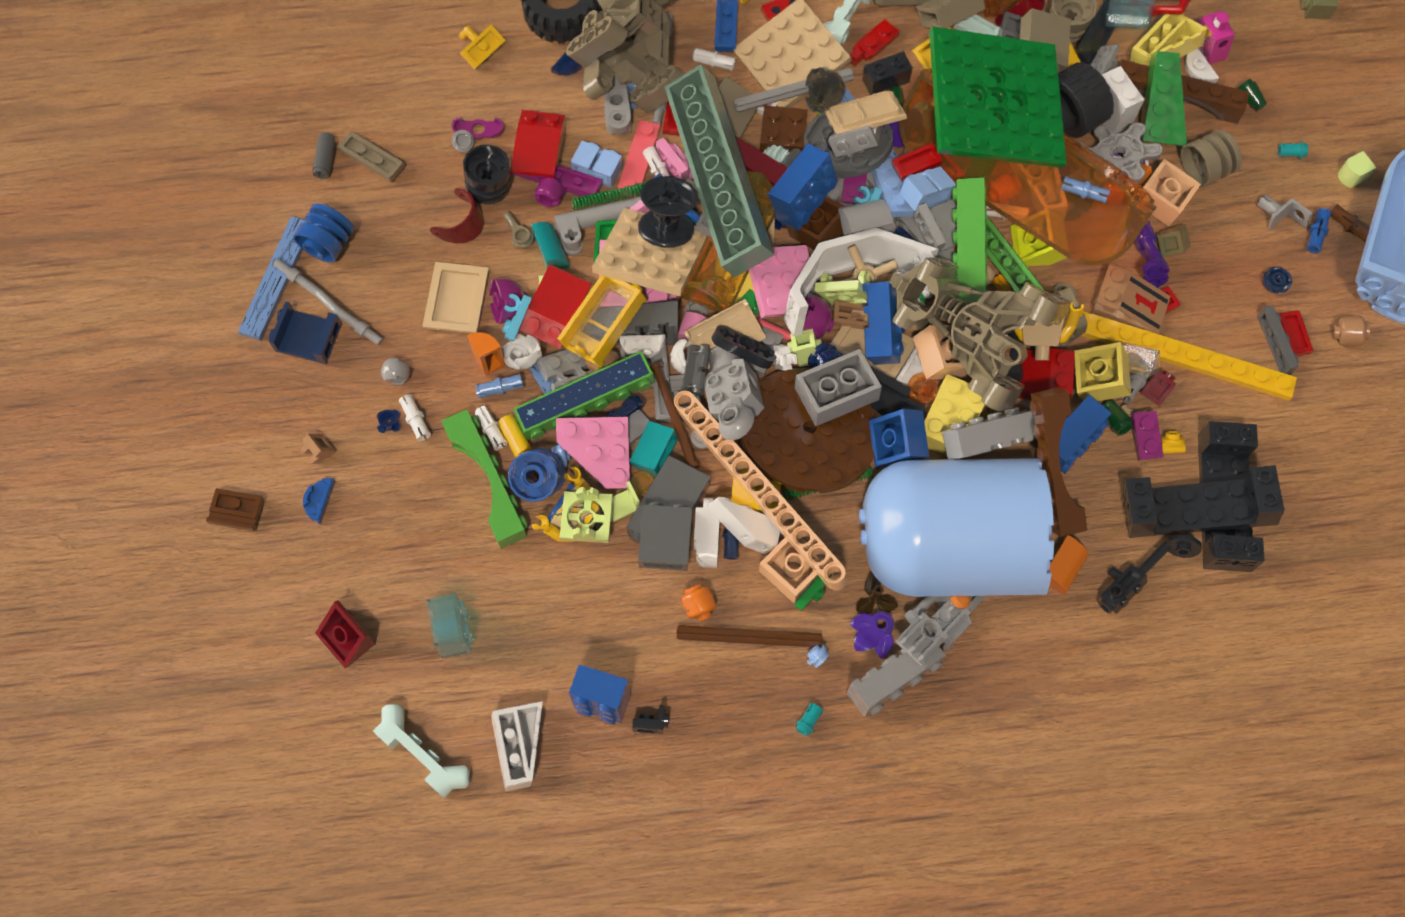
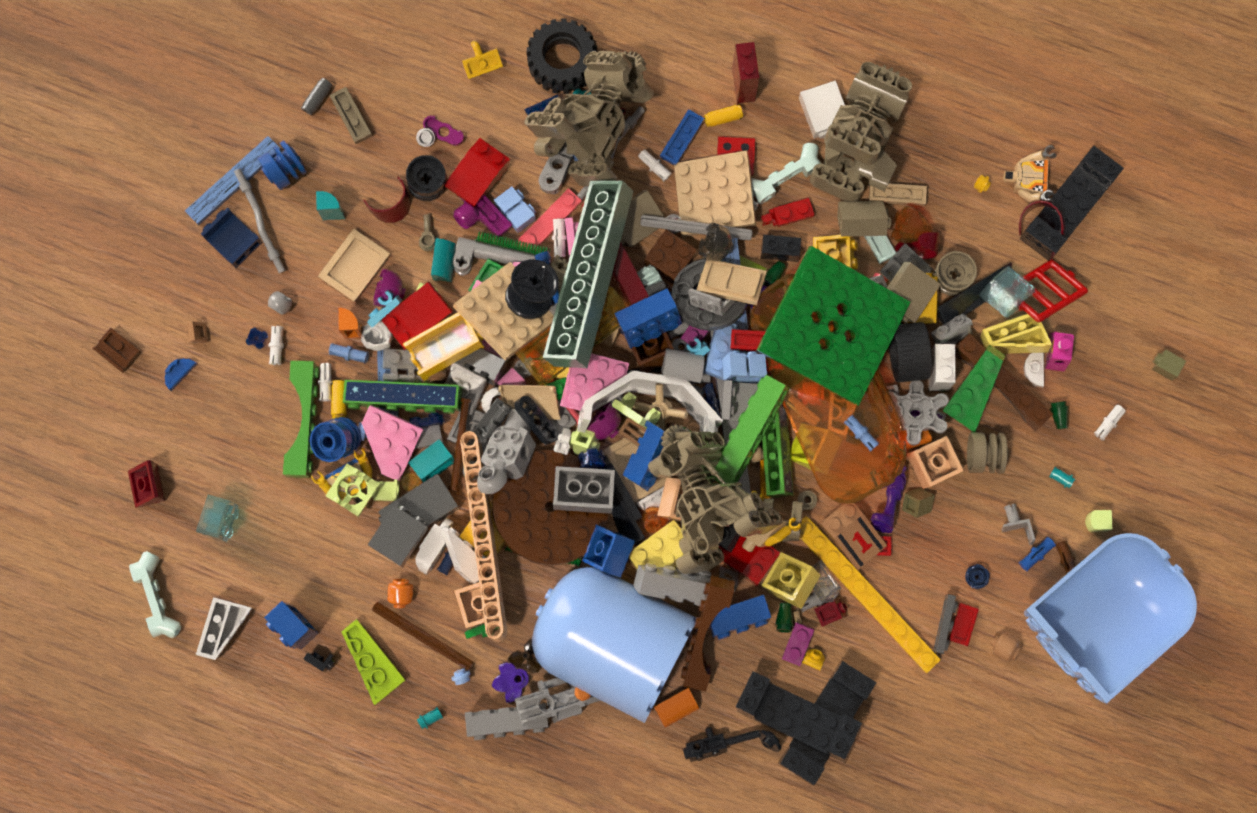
camera: 30 degrees right, 10 degrees up
(398, 248) = (328, 206): none -> teal brick
(713, 695) = (374, 666): none -> lime wing
(1302, 79) = (1110, 422): none -> white axle

